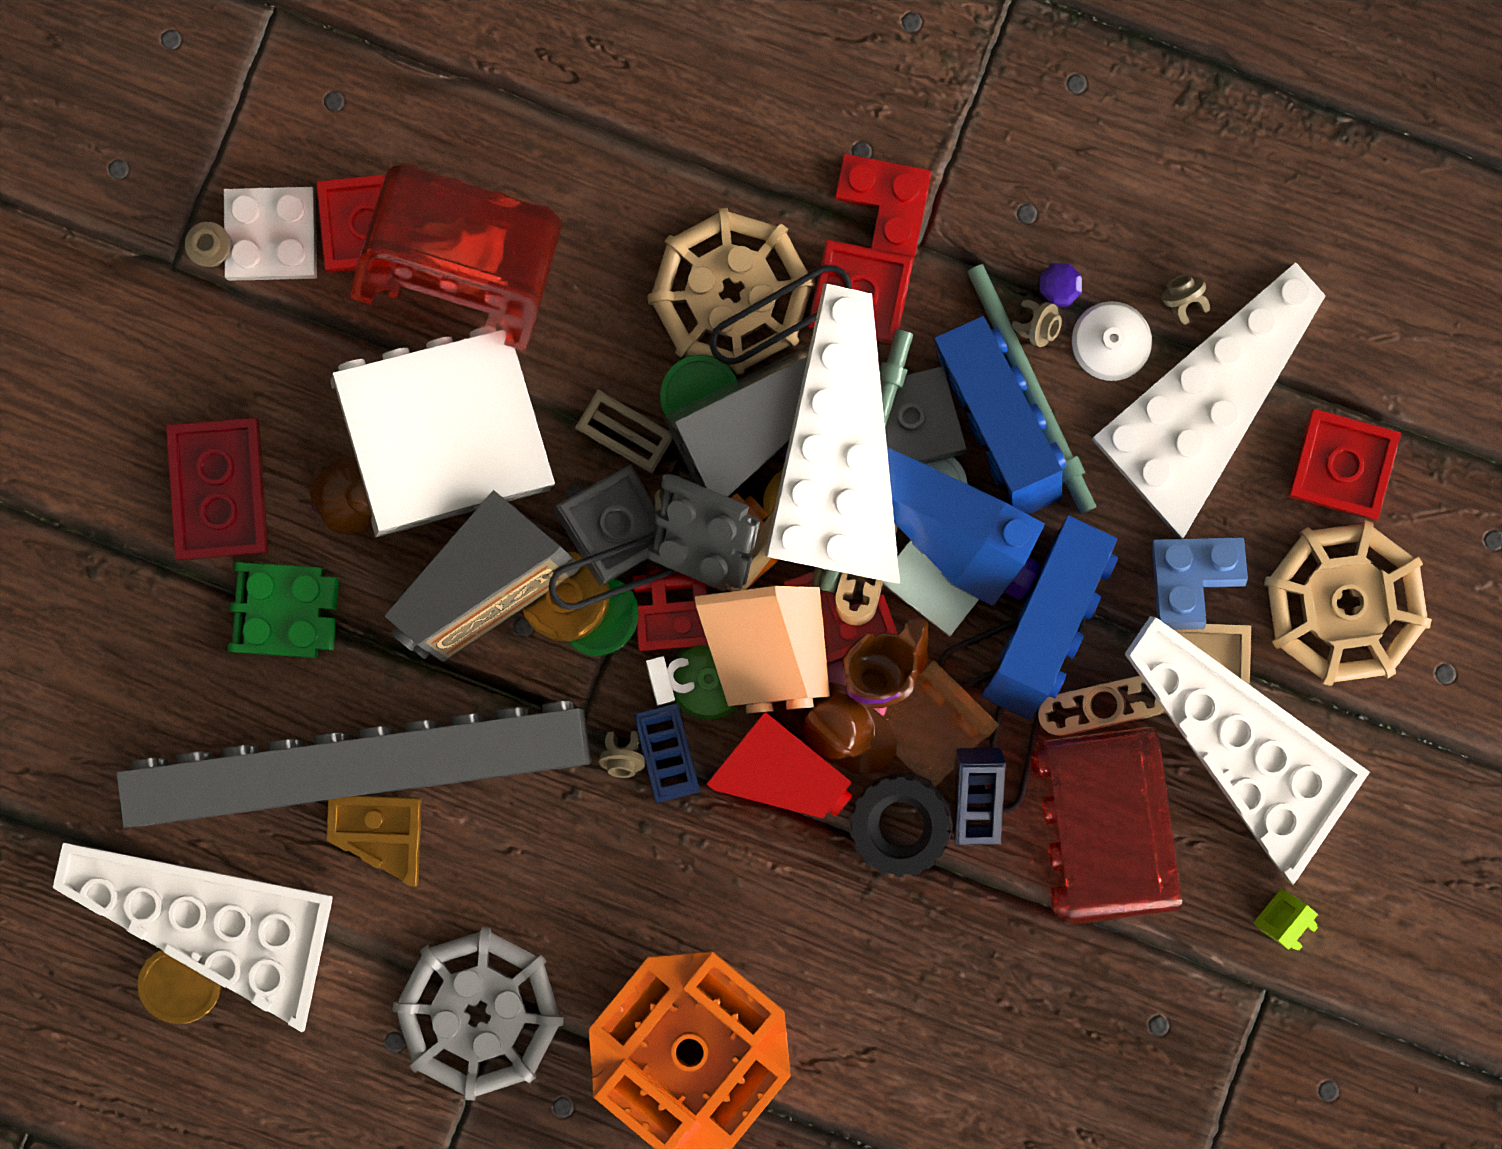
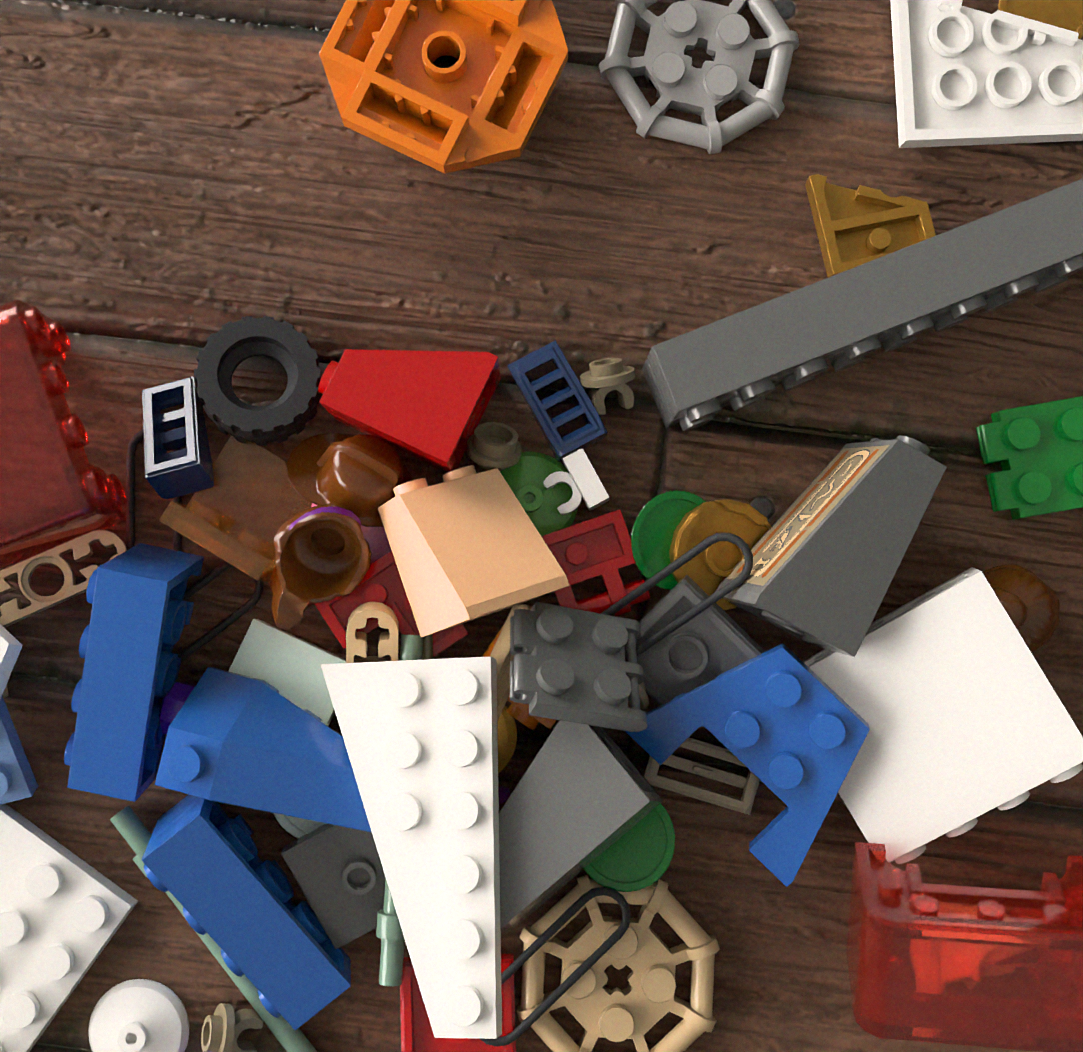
camera: 155 degrees right, 0 degrees up
(559, 450) = (783, 730): none -> blue wing
(726, 726) = (494, 446): none -> dark tan plate

